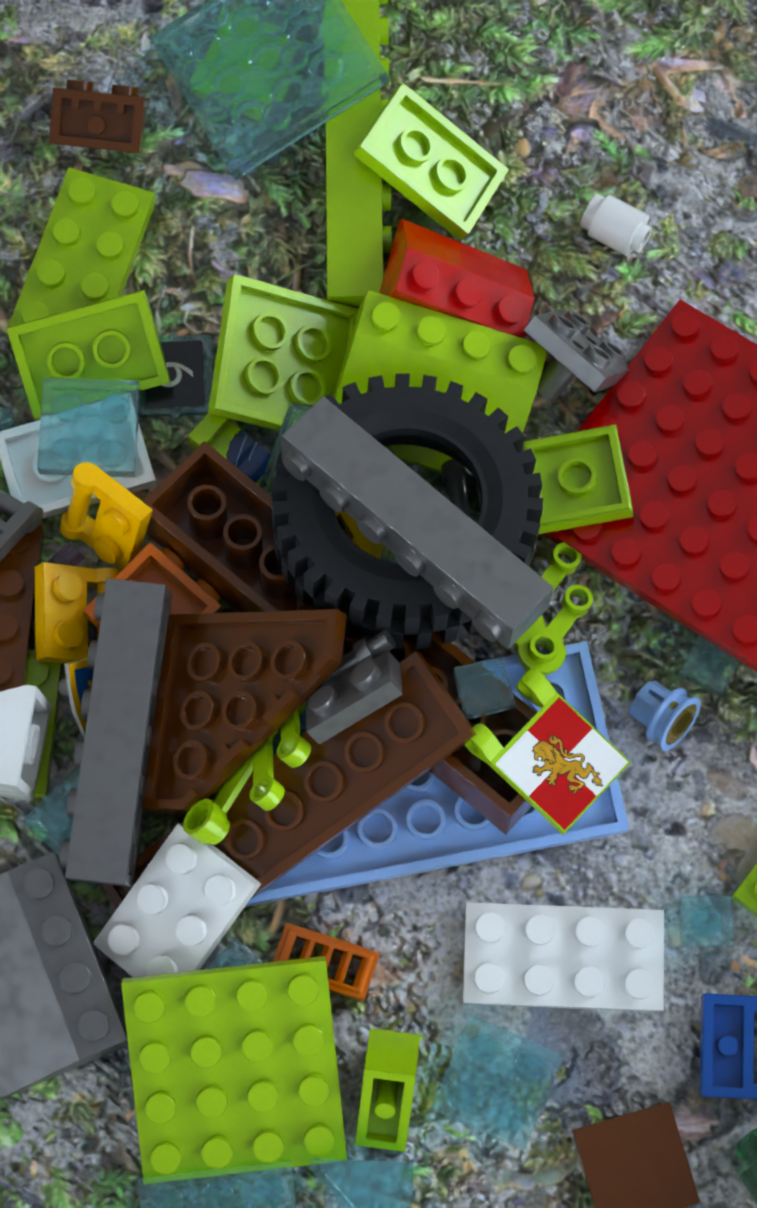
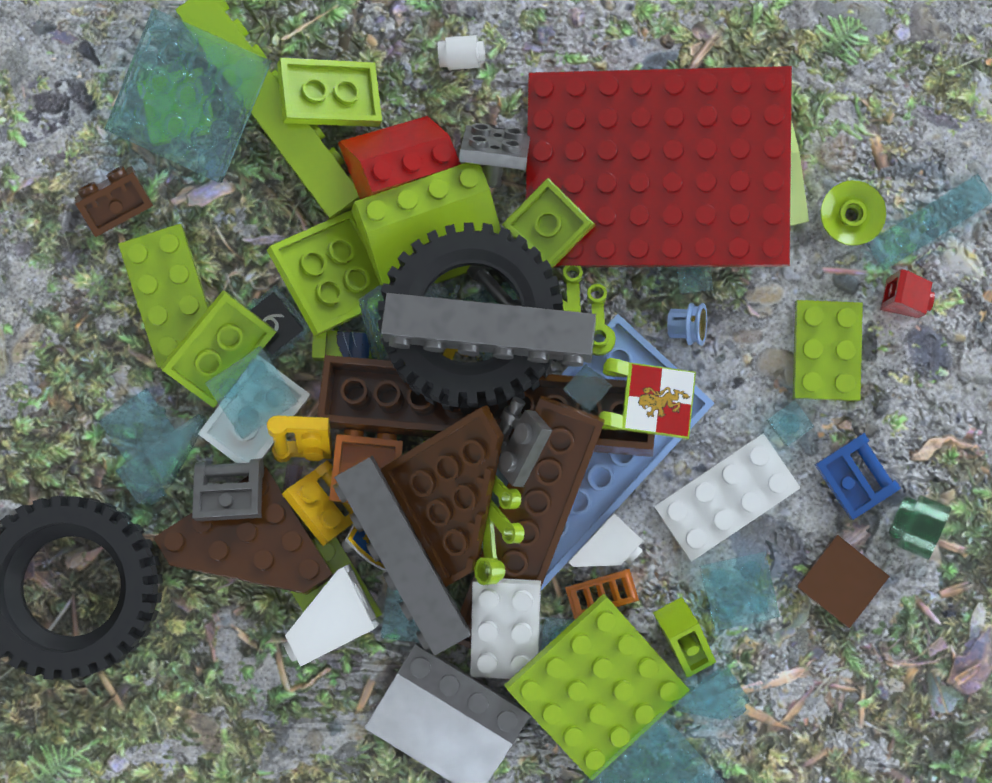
camera: 35 degrees left, 10 degrees up
(374, 908) = (609, 546): none -> white slope

